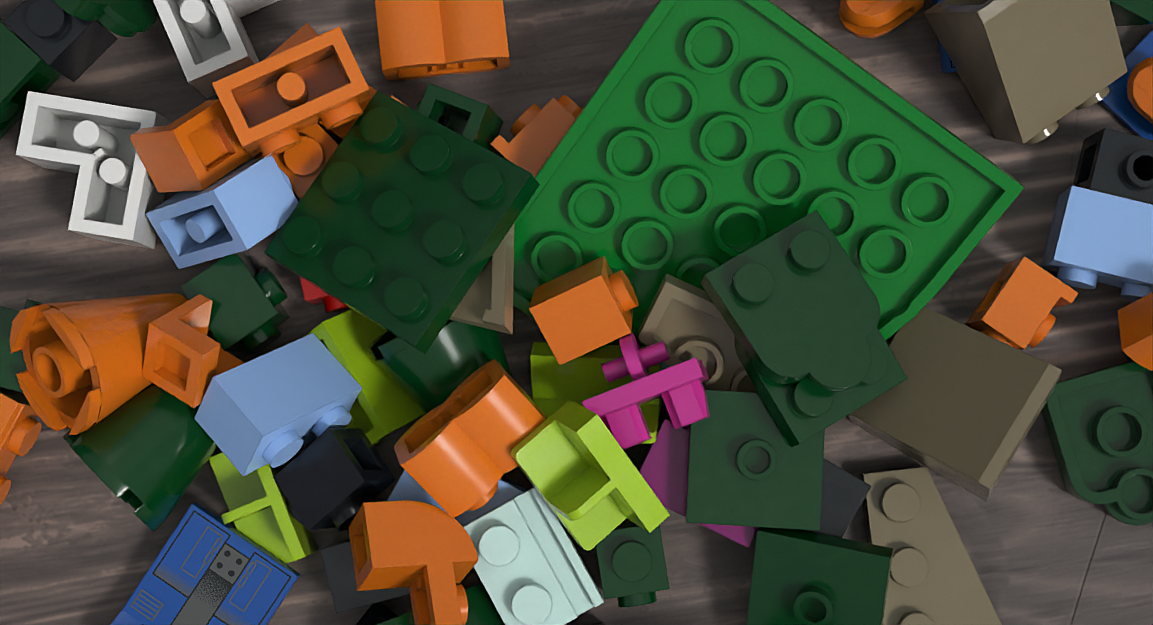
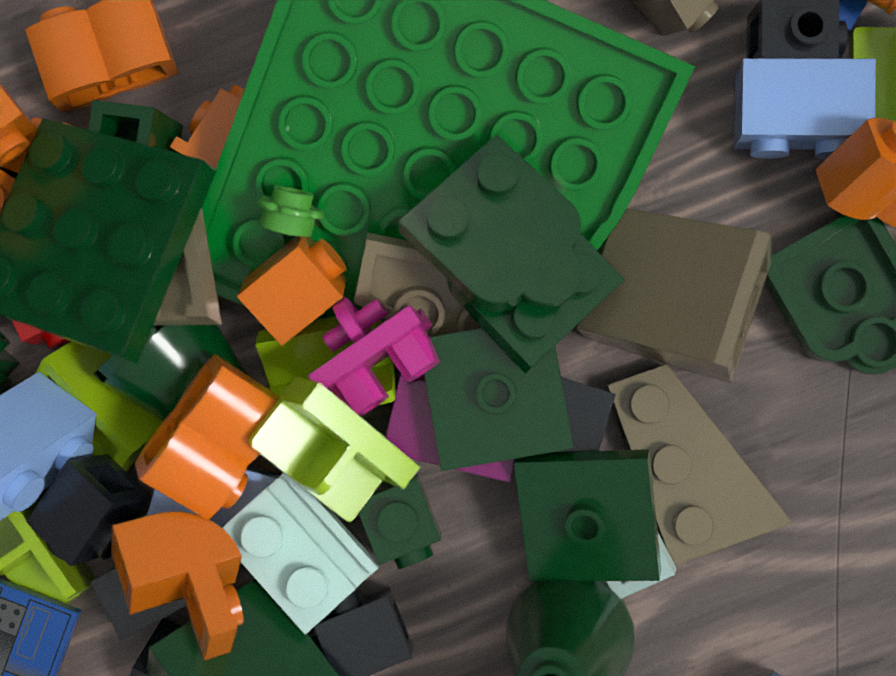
camera: 15 degrees left, 0 degrees up
(596, 237) = (289, 211): none -> bright green plate
(1020, 304) = (721, 184): orange brick -> none

